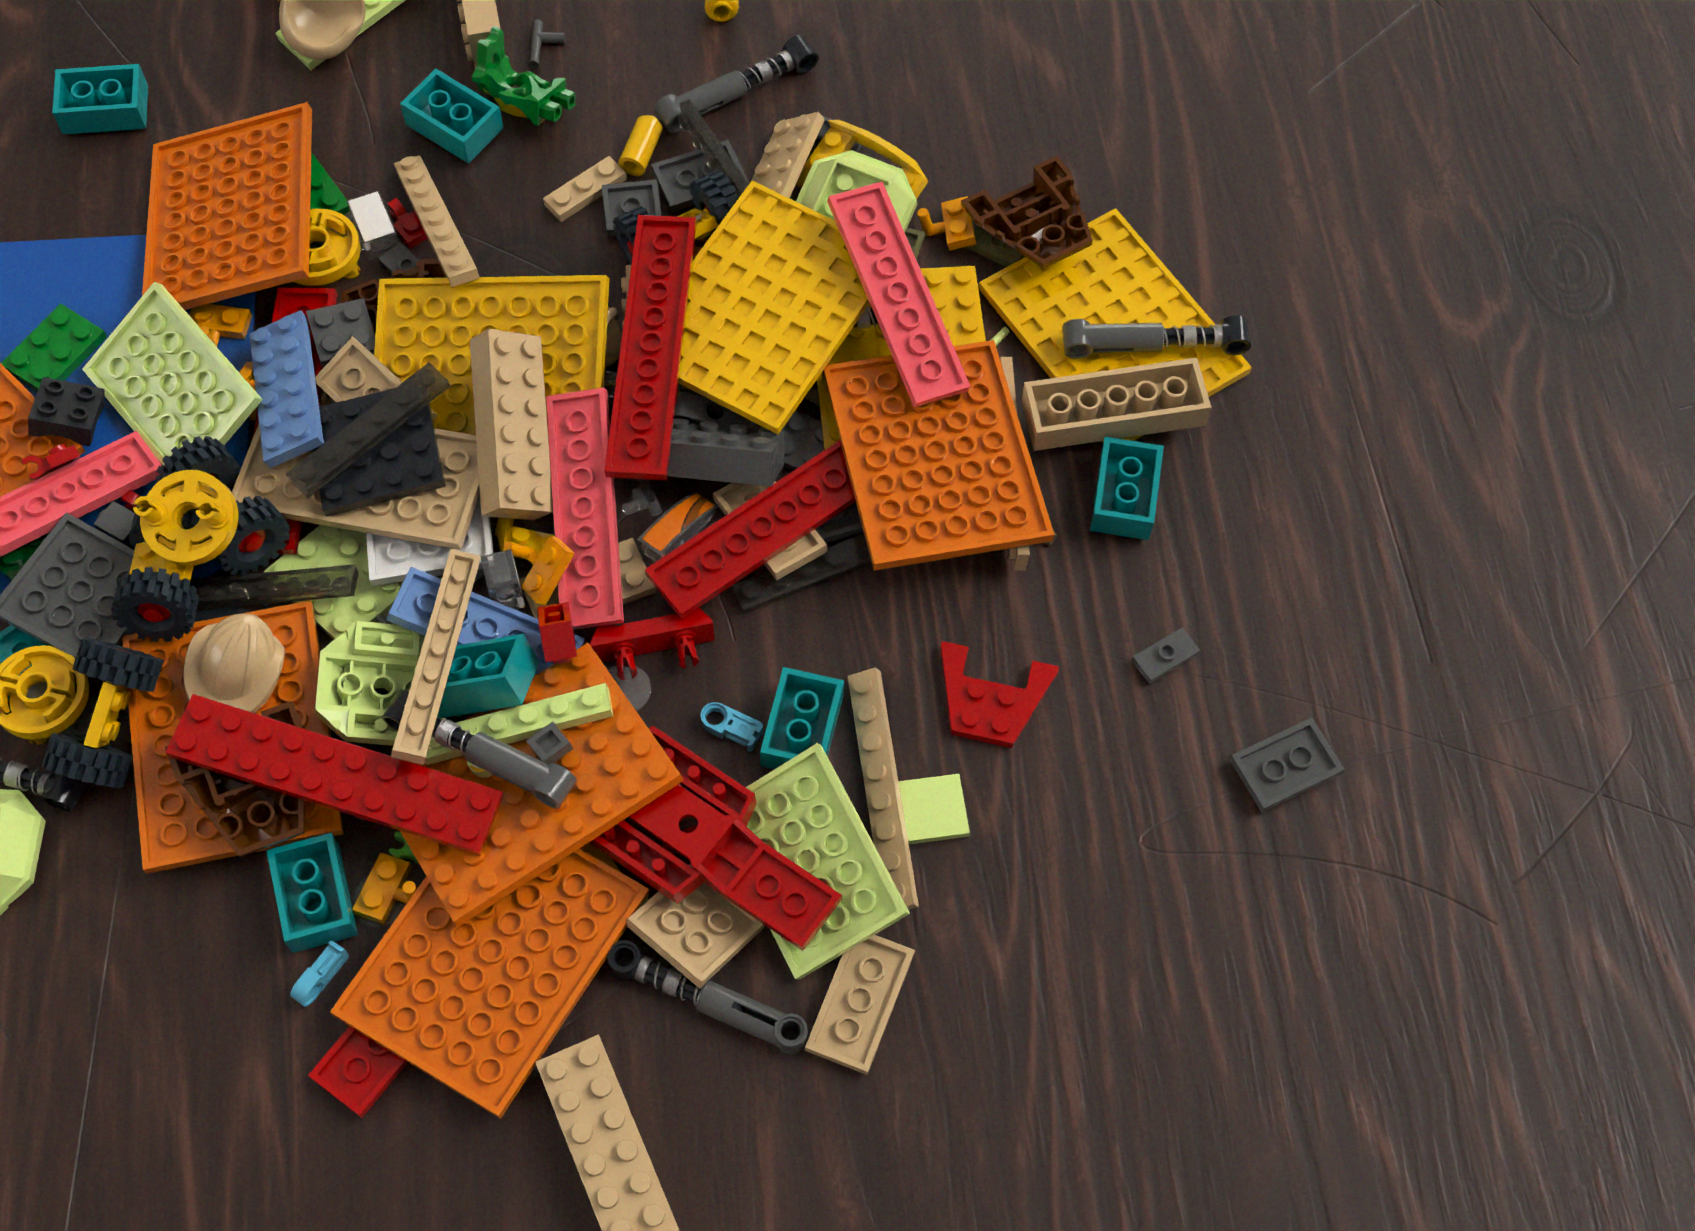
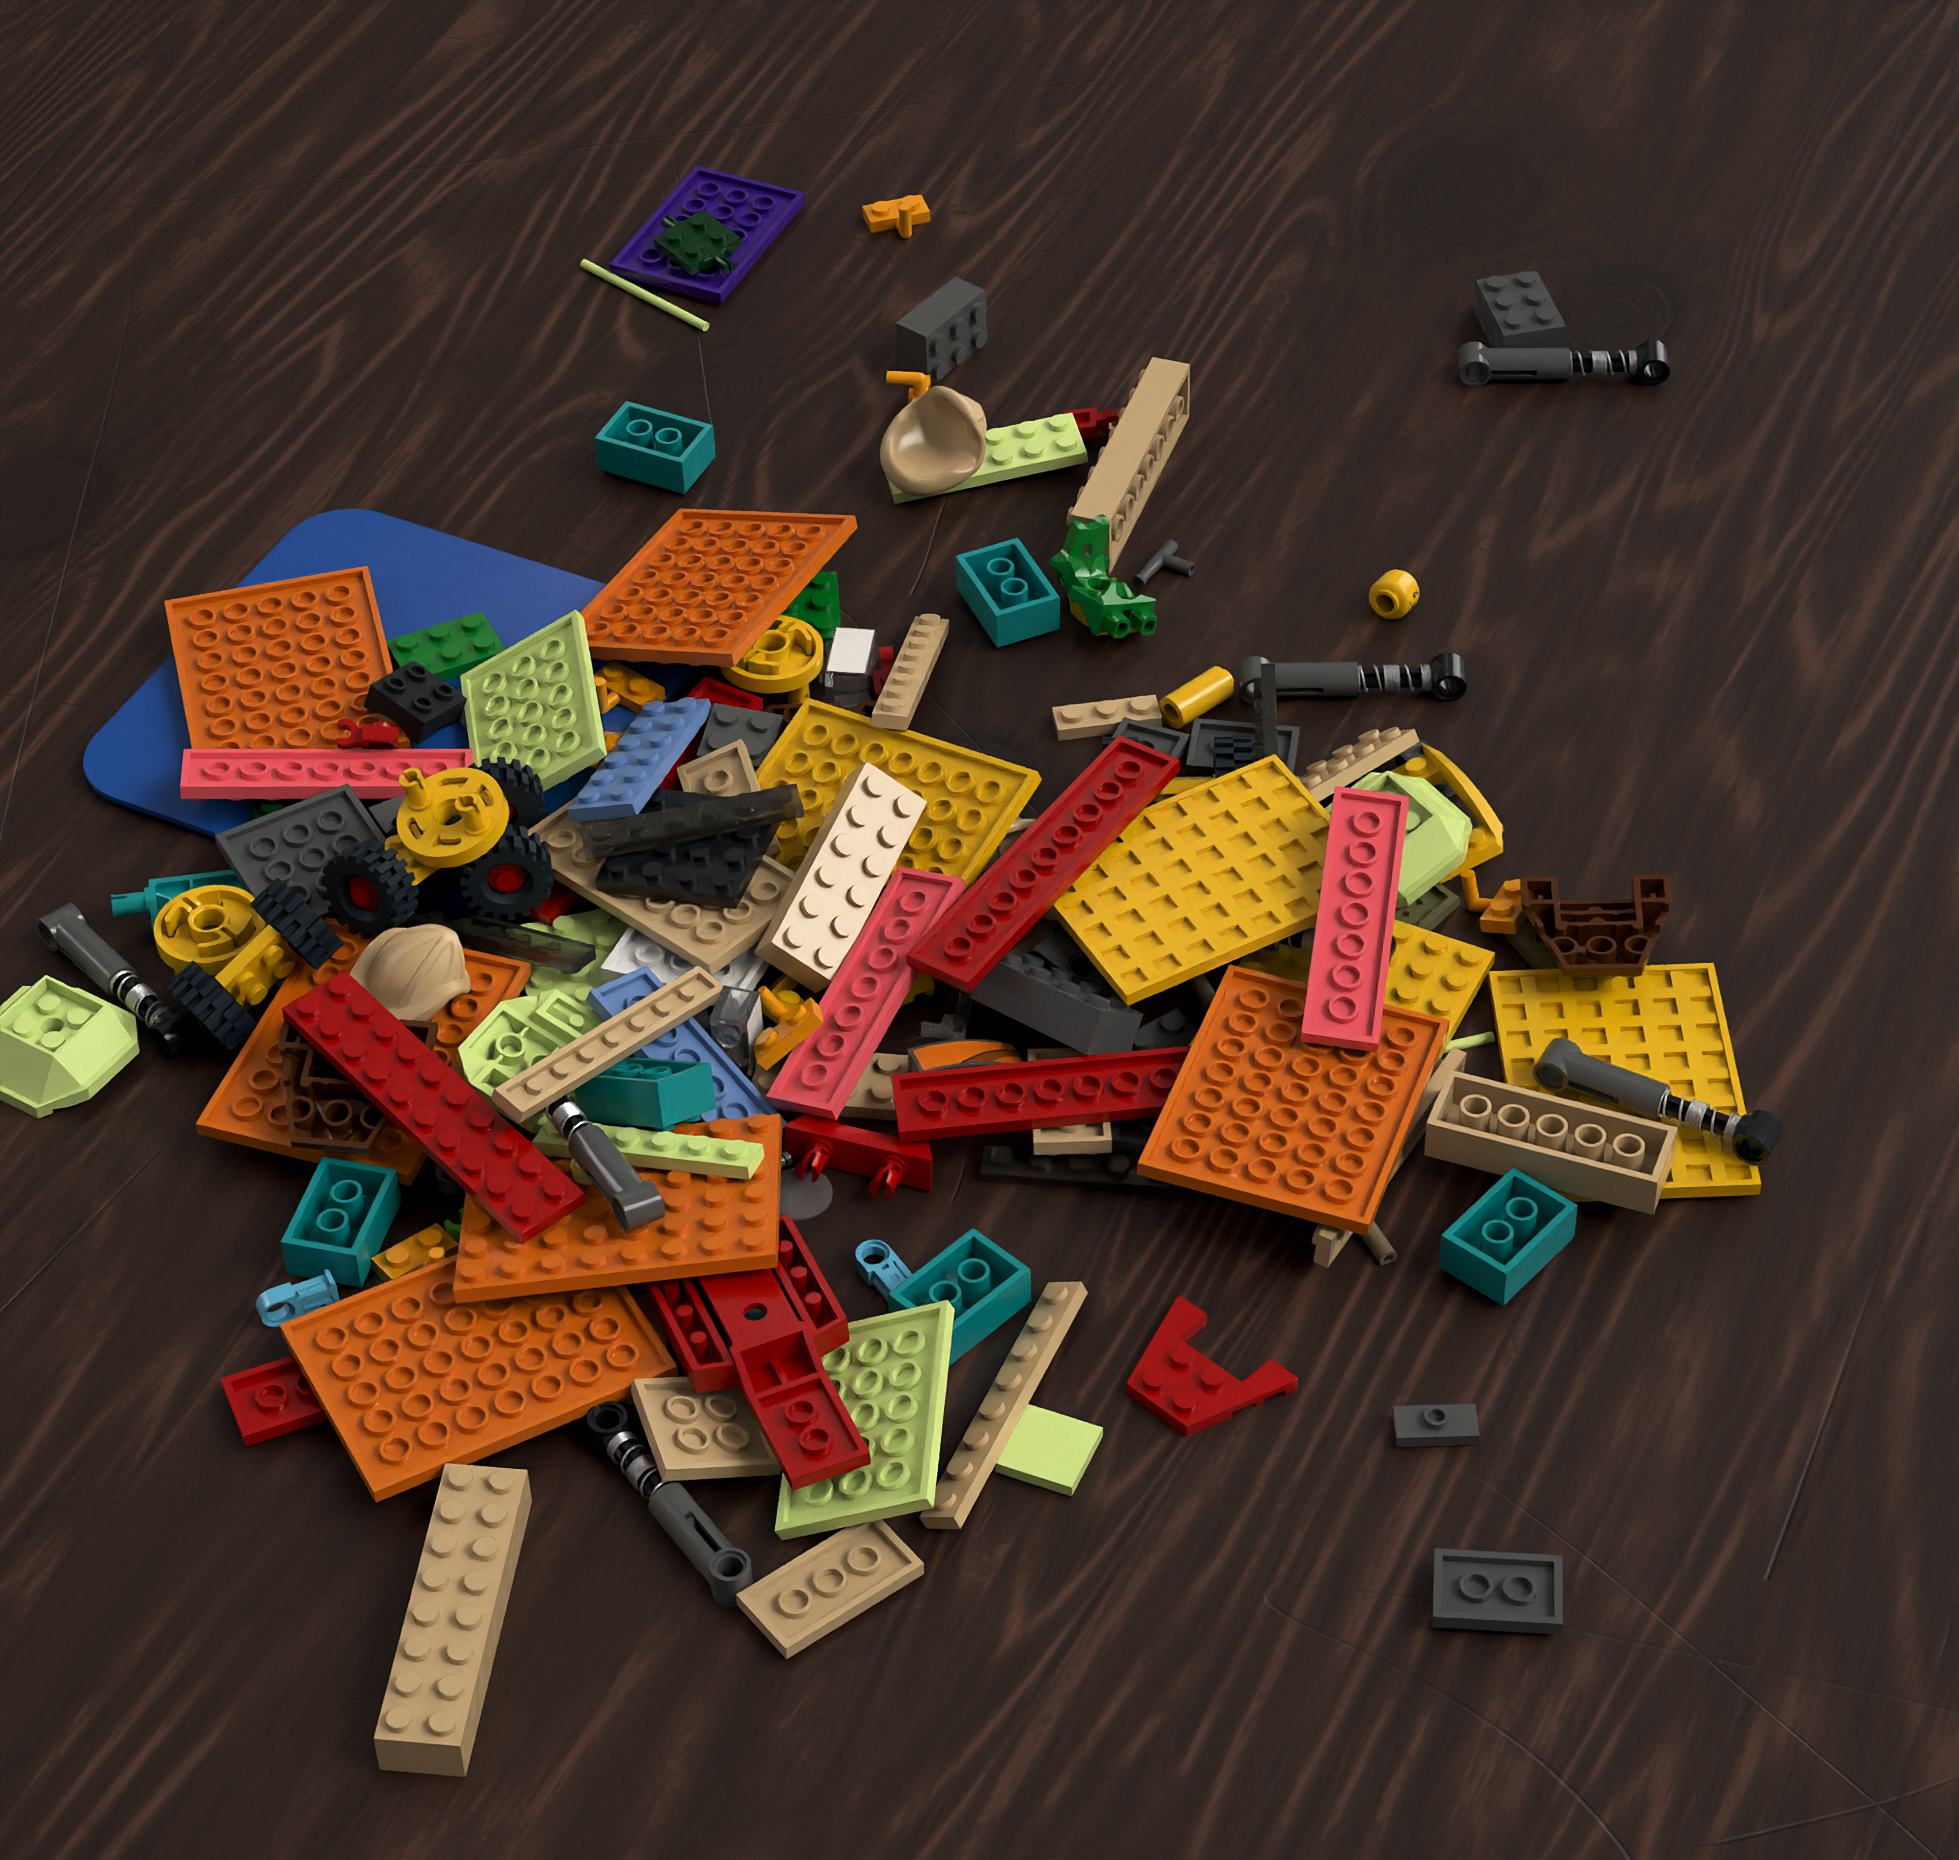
camera: 35 degrees right, 20 degrees down
(549, 744) = (665, 1172): dark grey plate -> none
(557, 632) = (750, 1086): red brick -> none

